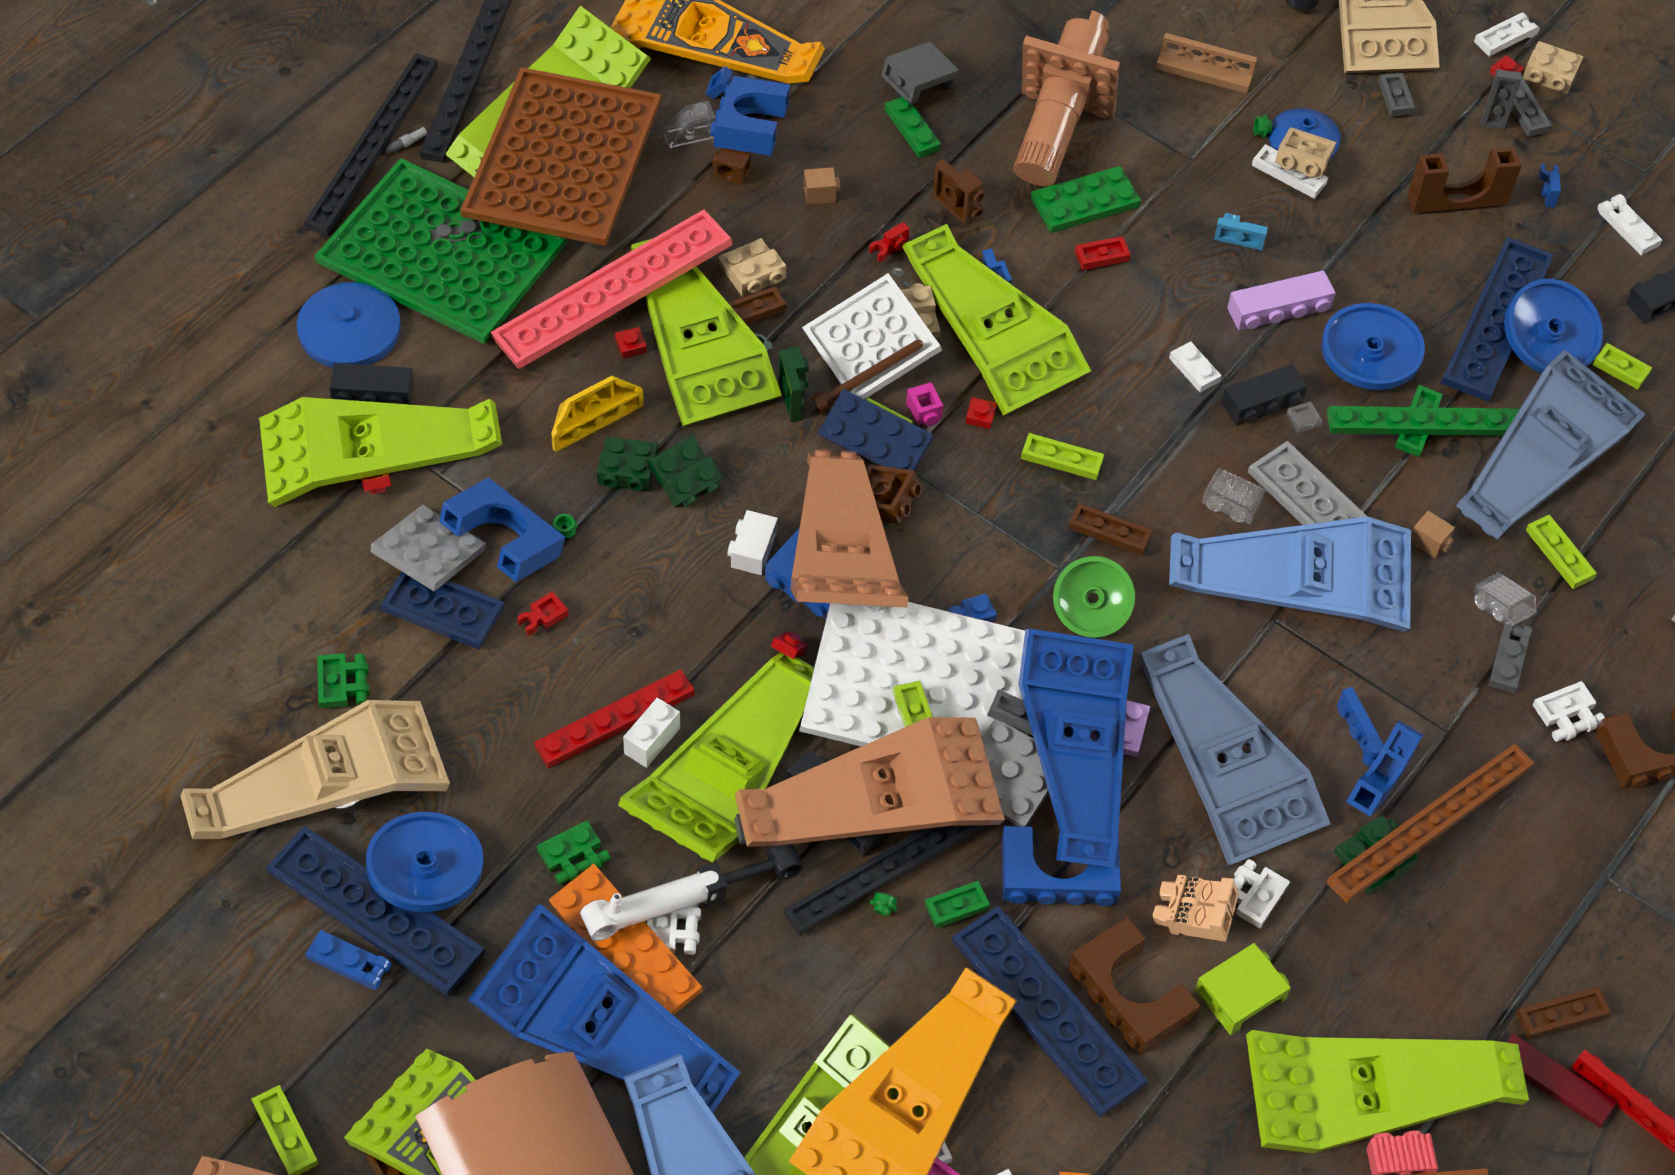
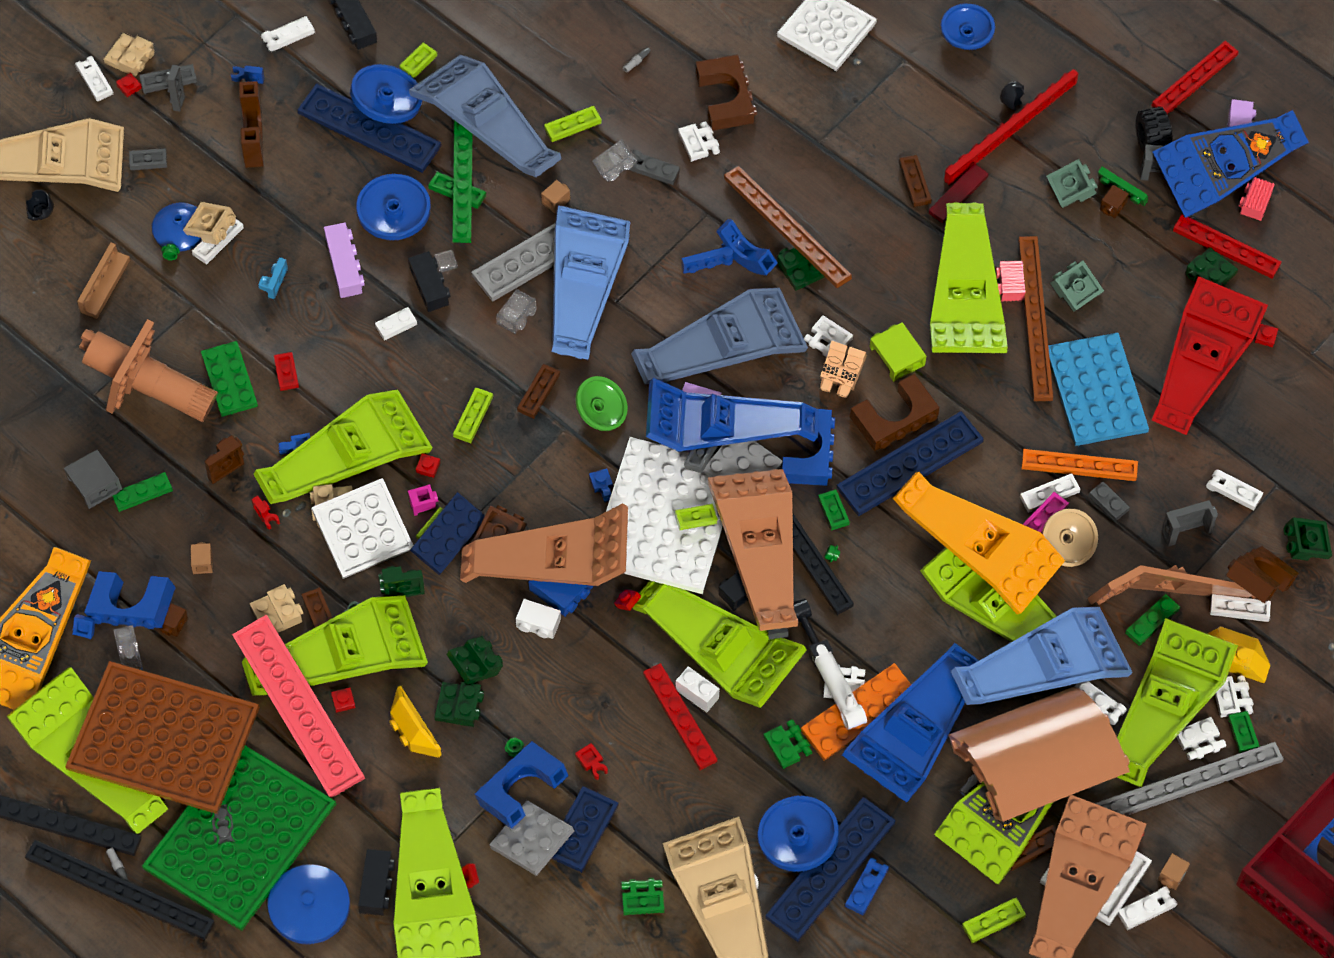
camera: 85 degrees left, 5 degrees up
(825, 400) = (411, 563): reddish brown piece -> none

